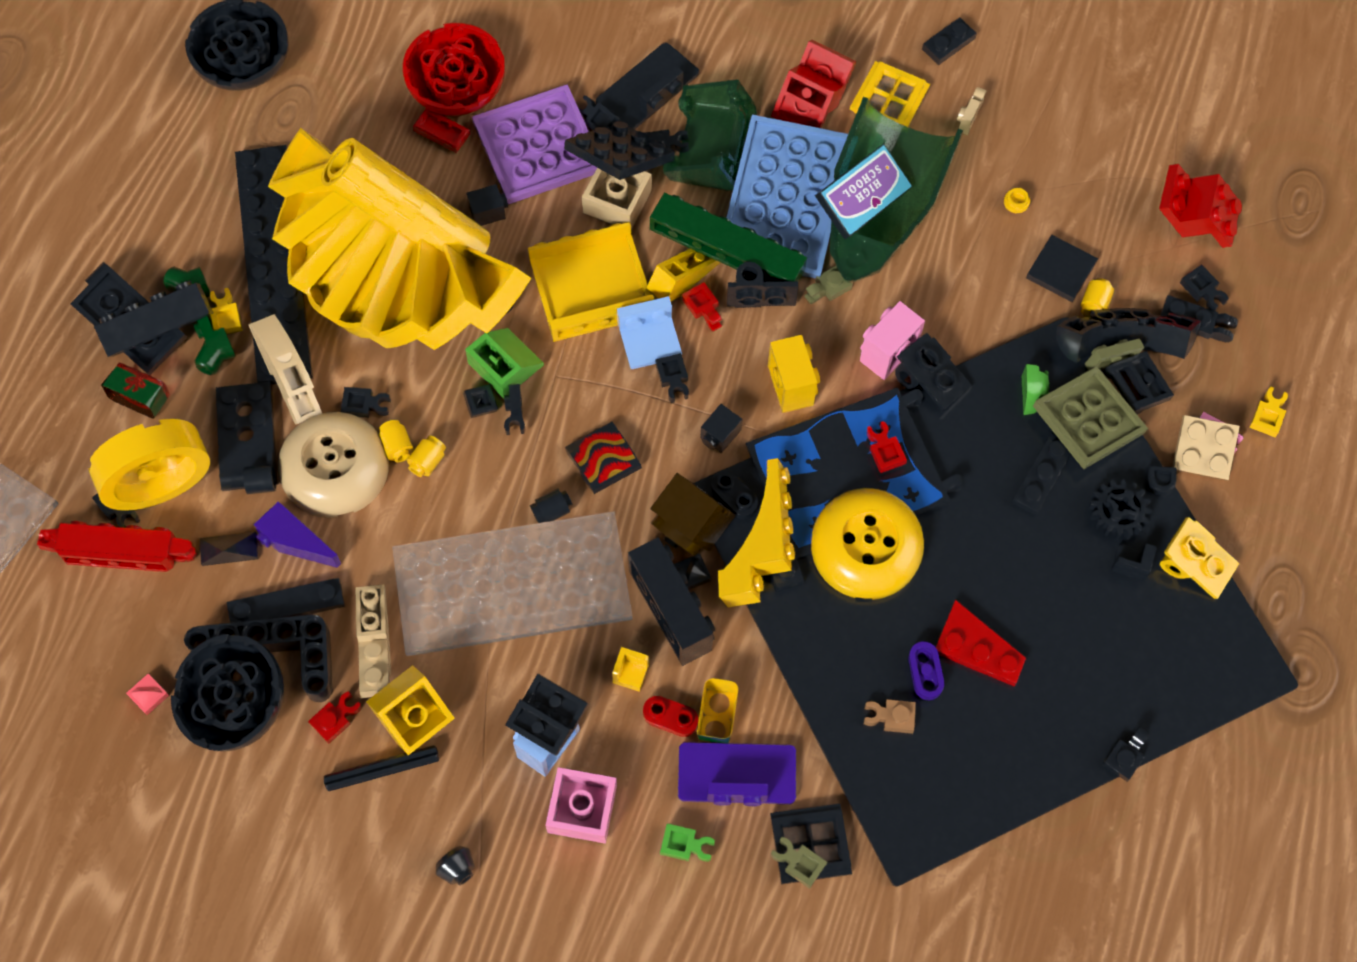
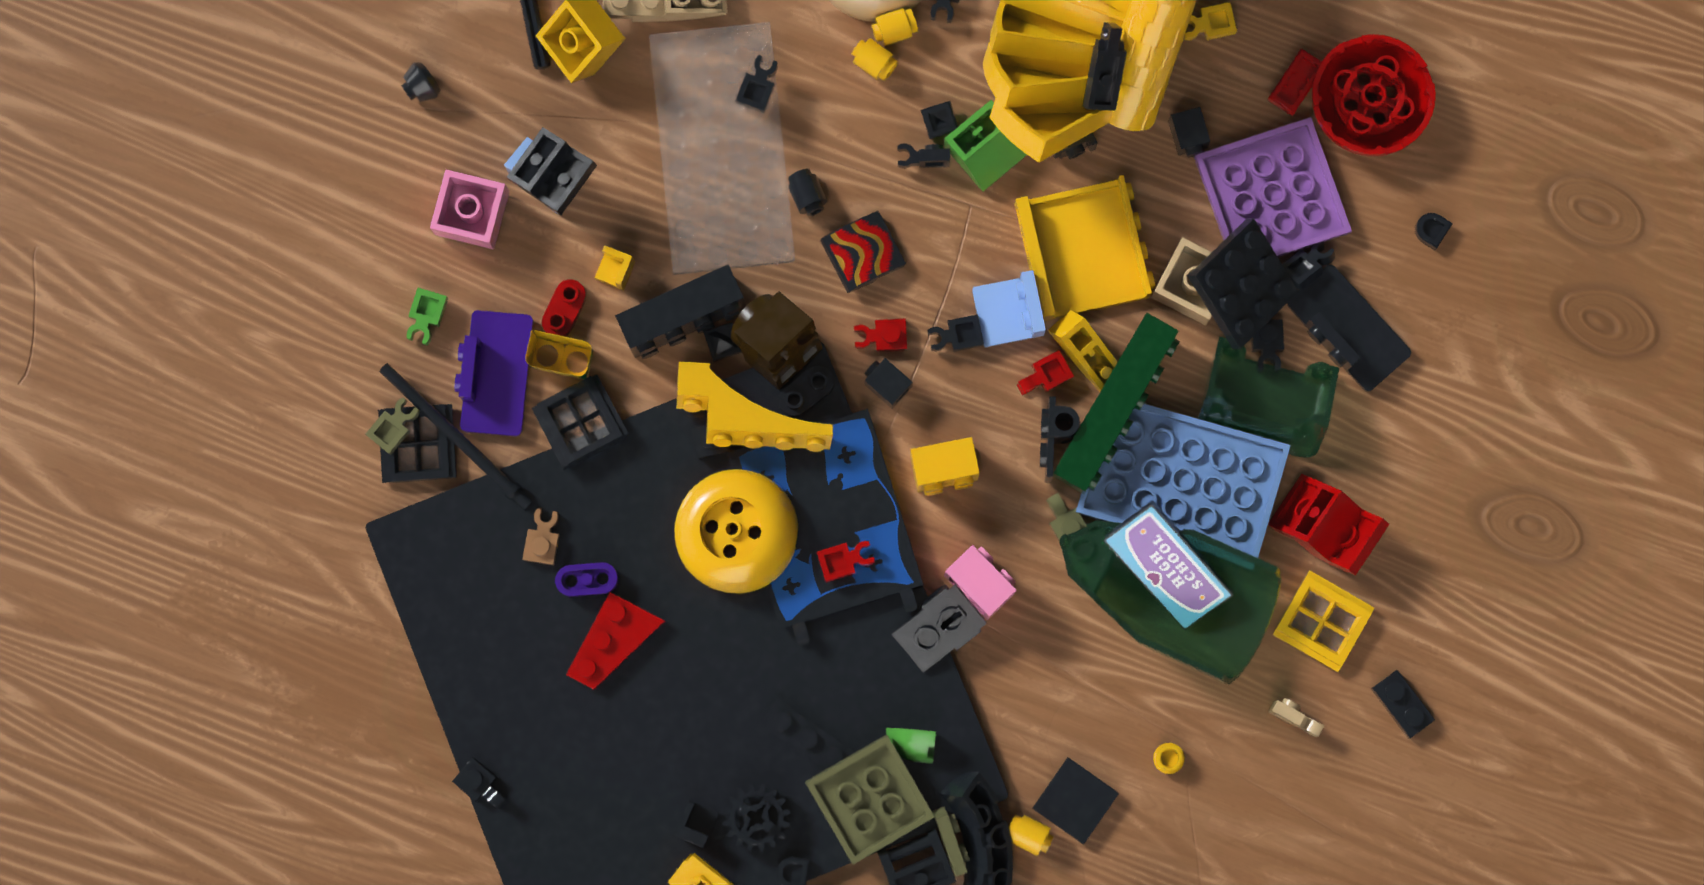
camera: 100 degrees right, 15 degrees up
(442, 239) = (1105, 70): none -> black hinge
(458, 549) = (756, 89): none -> black plate
(562, 33) = (1432, 229): none -> black tile
(677, 436) = (888, 335): none -> red plate
(778, 690) = (580, 422): none -> black piece
(849, 745) = (512, 490): none -> black bar

